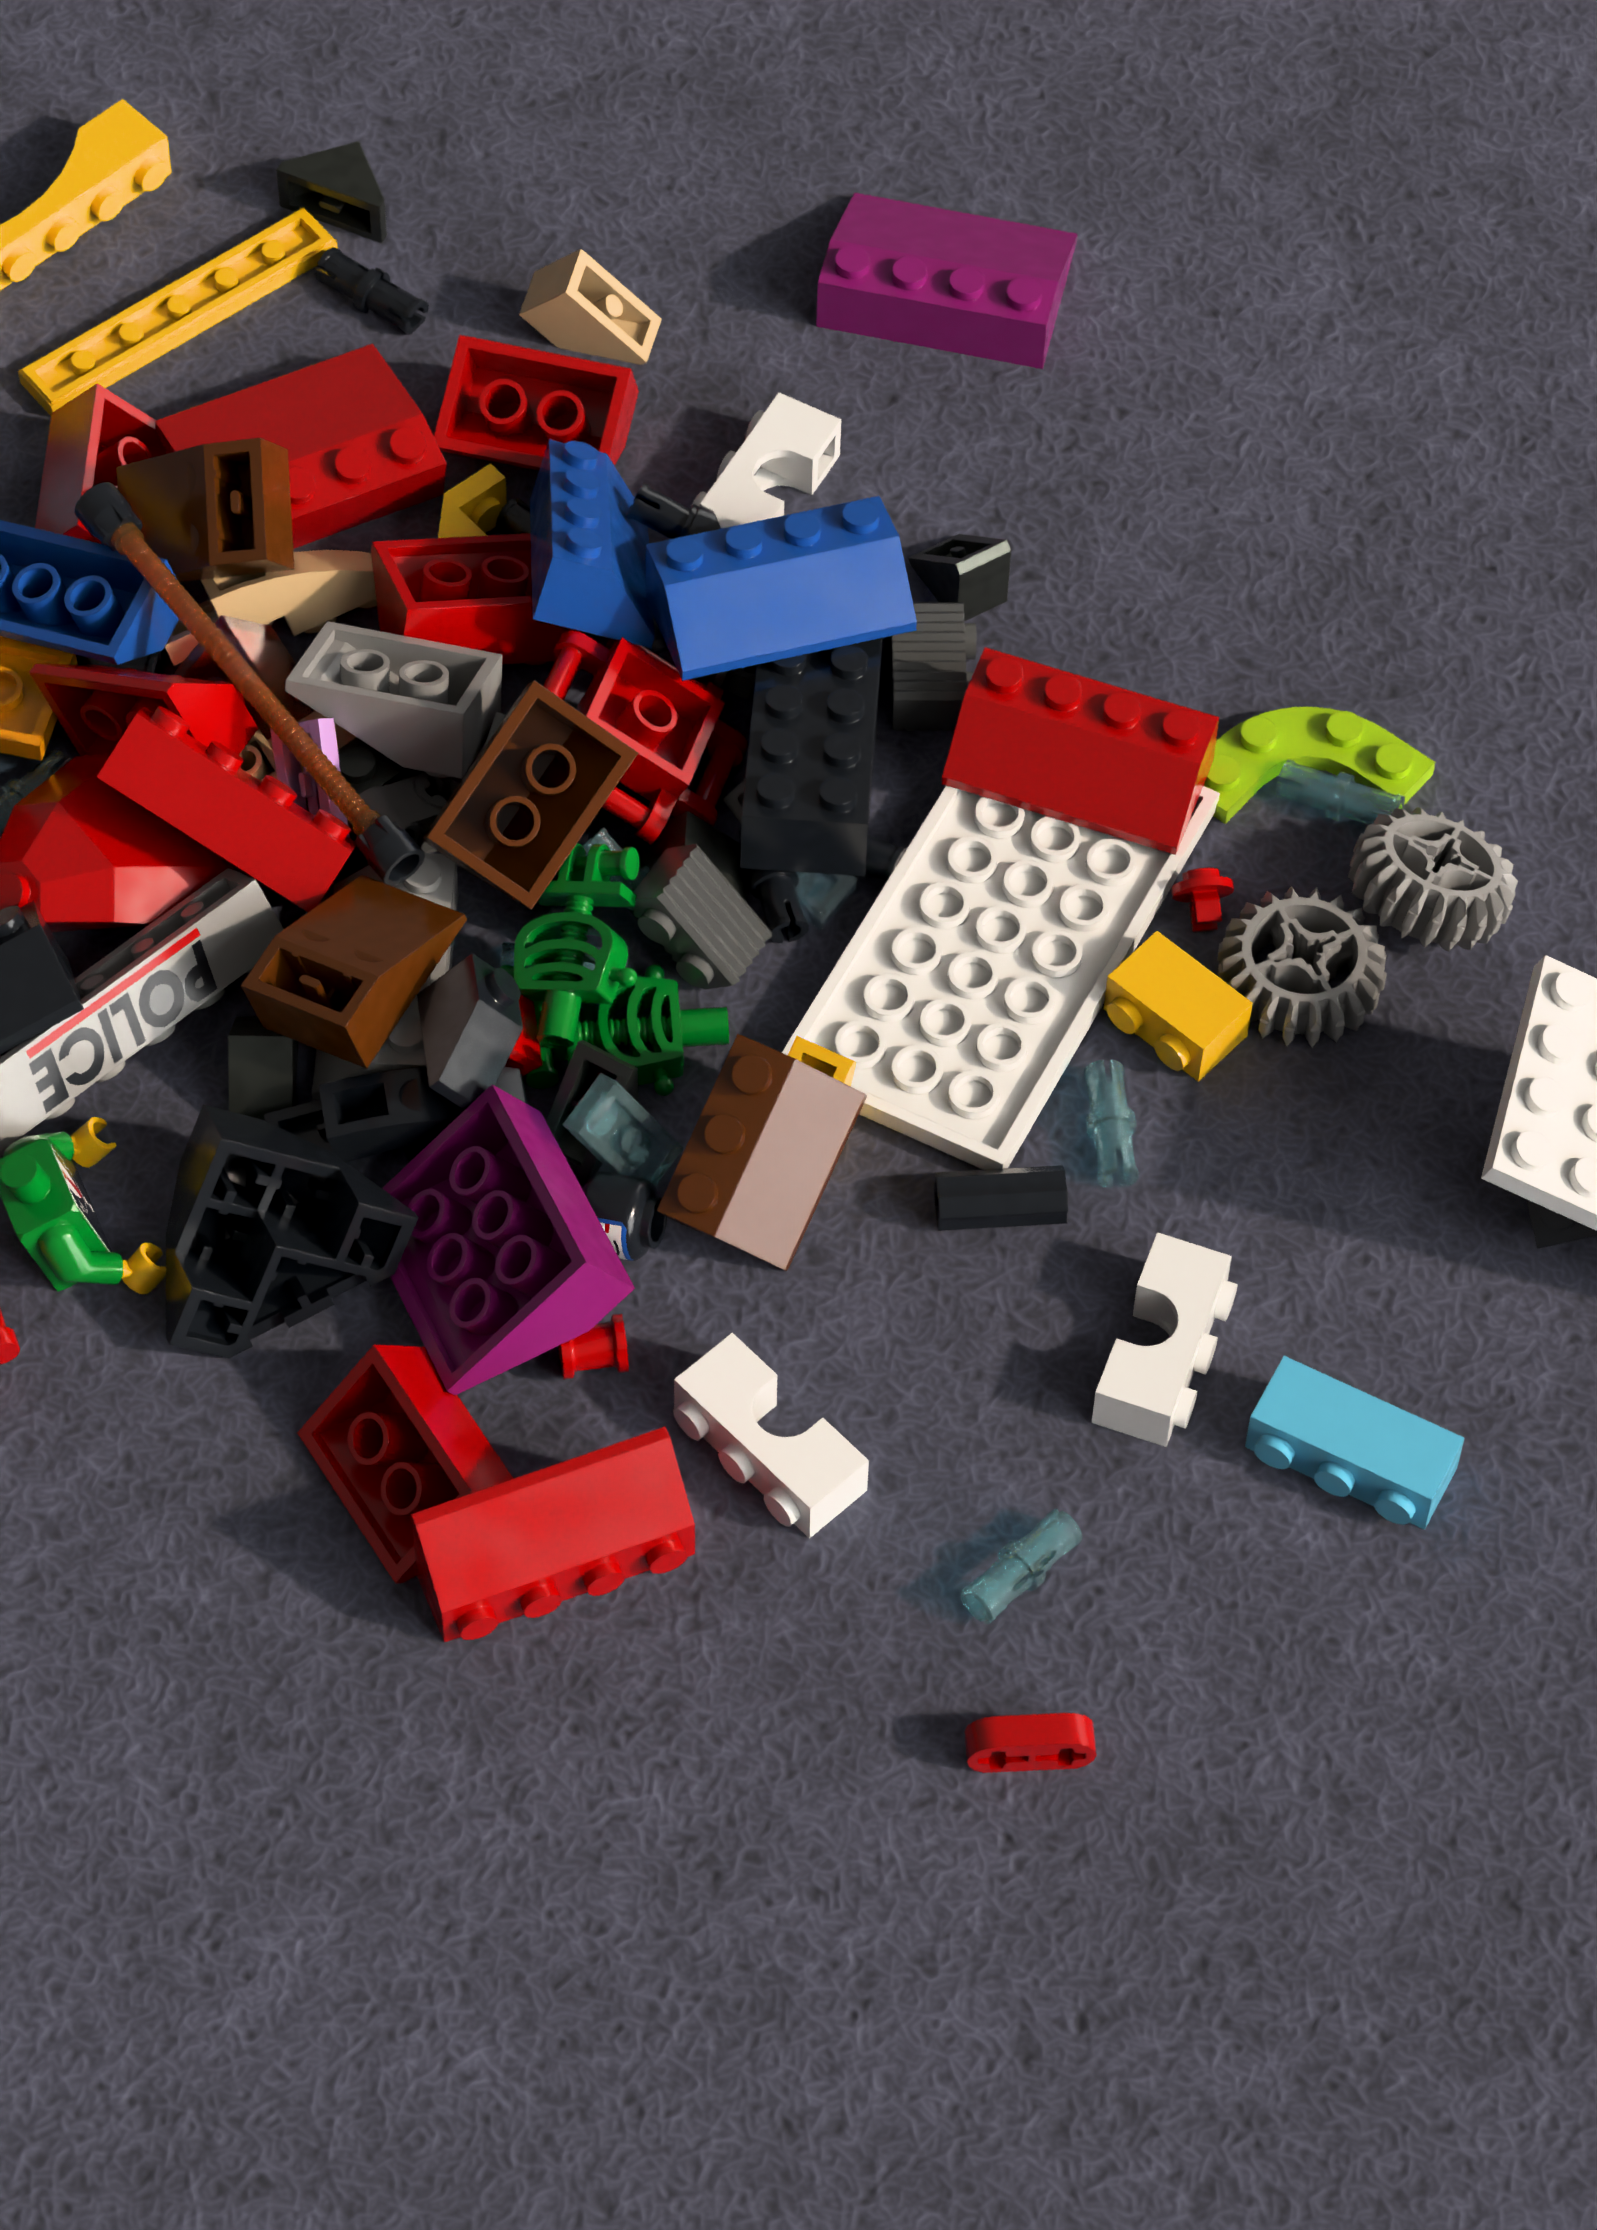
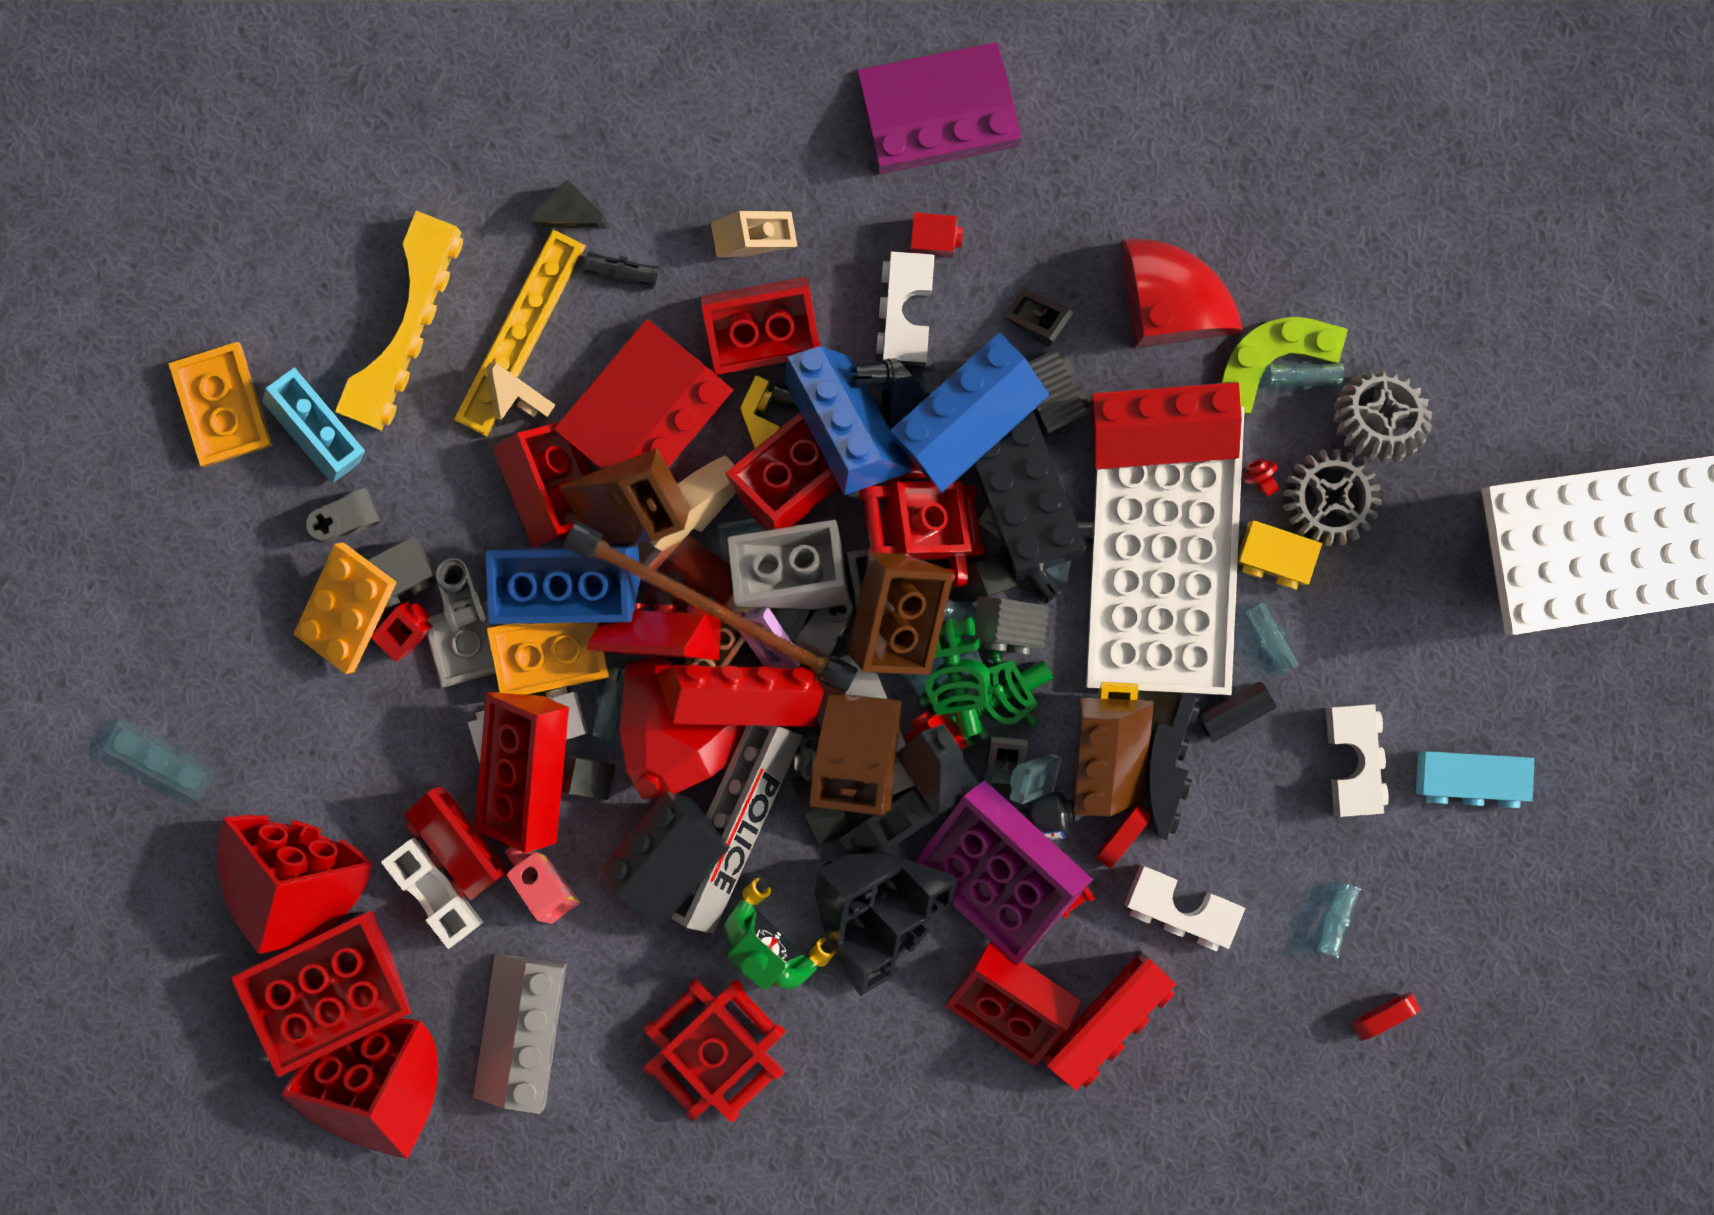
camera: 30 degrees left, 30 degrees up
(124, 349) = (506, 388): none -> tan slope
(723, 1296) = (1123, 836): none -> red beam
(842, 1225) = (1164, 780): none -> black slope
(866, 408) = (935, 234): none -> red brick
(1180, 614) = (1174, 295): none -> red brick

